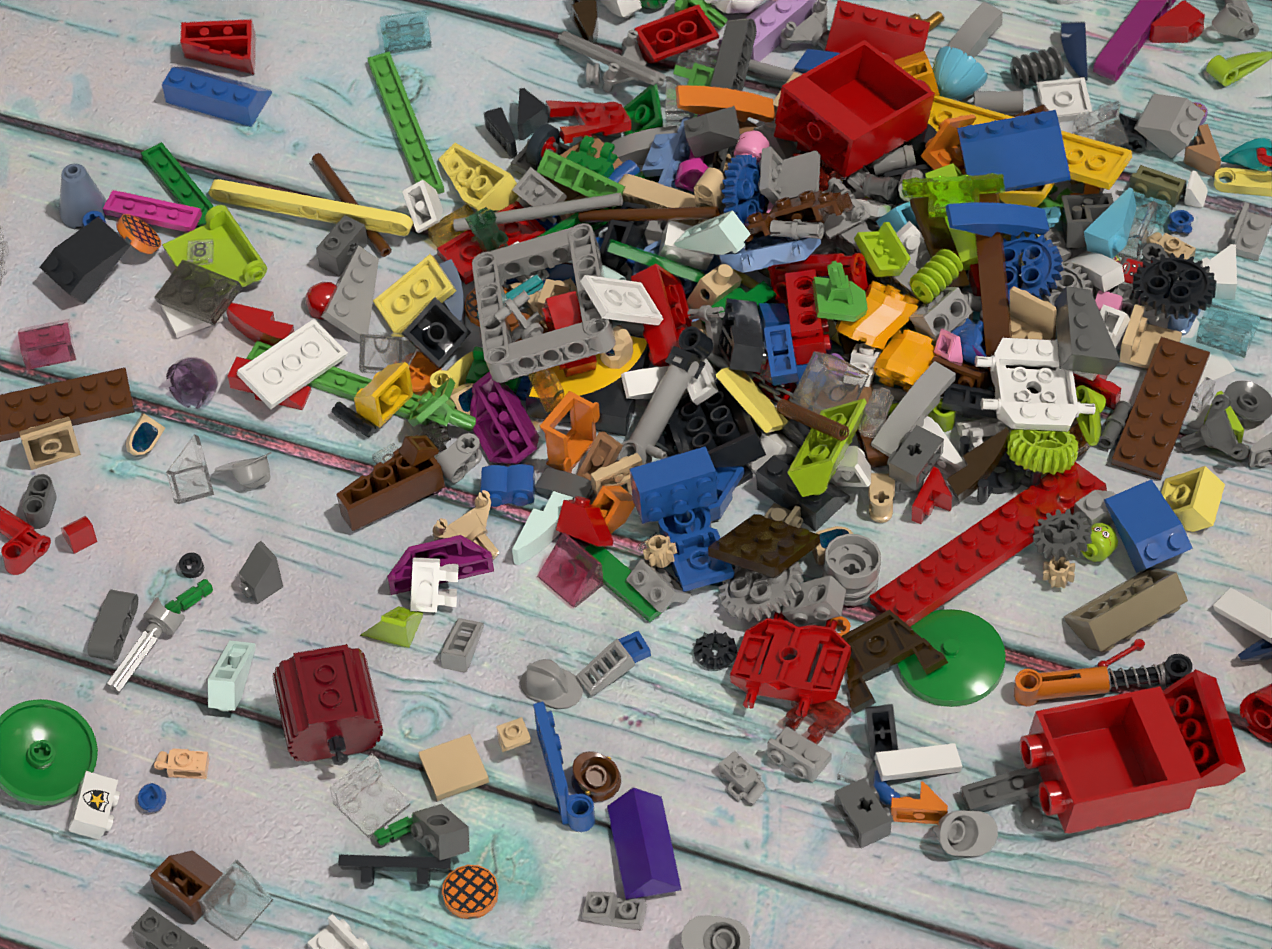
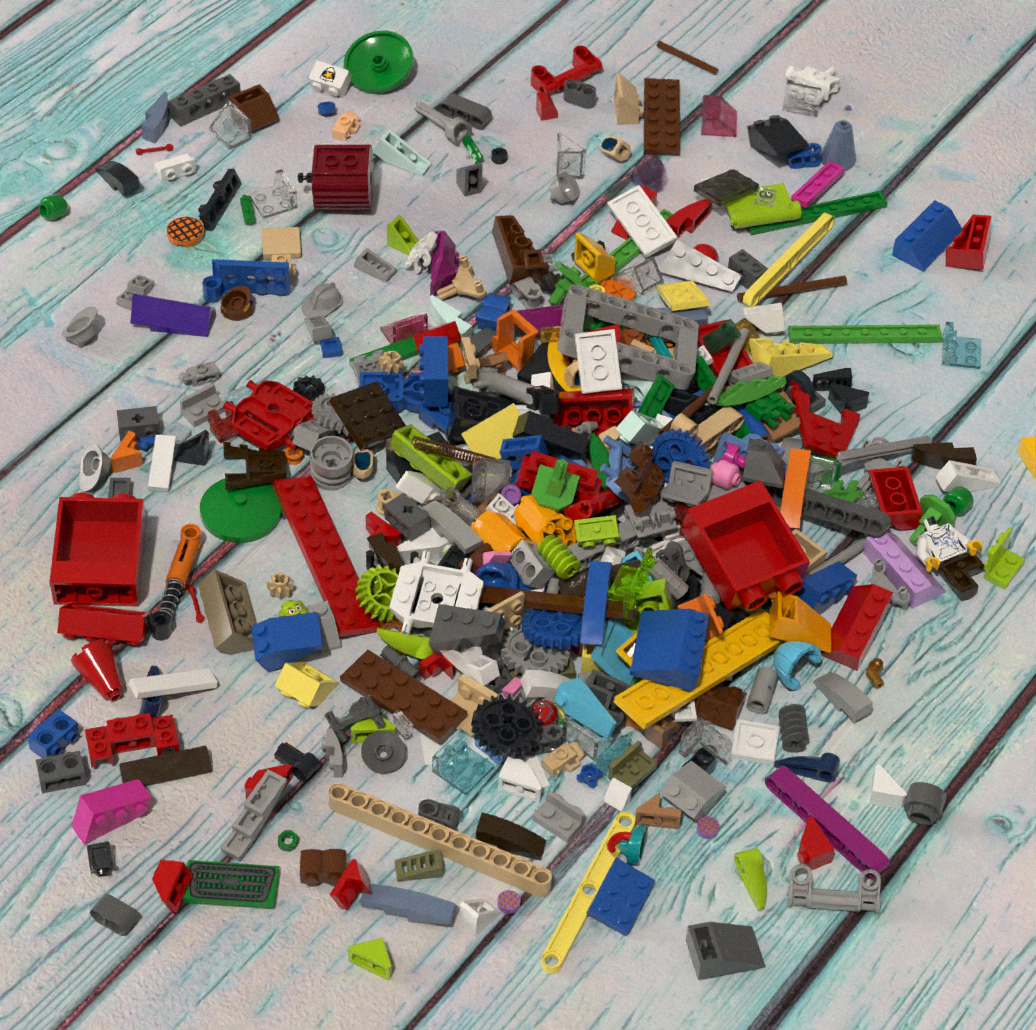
camera: 100 degrees right, 5 degrees down
(141, 234) = (794, 169): orange tile -> none
(435, 332) = (639, 288): black slope -> none
(440, 832) = (226, 215): dark grey brick -> none
(526, 328) = (609, 316): light grey axle -> none
(796, 229) = (632, 463): light grey pin -> none
(1062, 535) = (301, 584): dark grey gear -> none

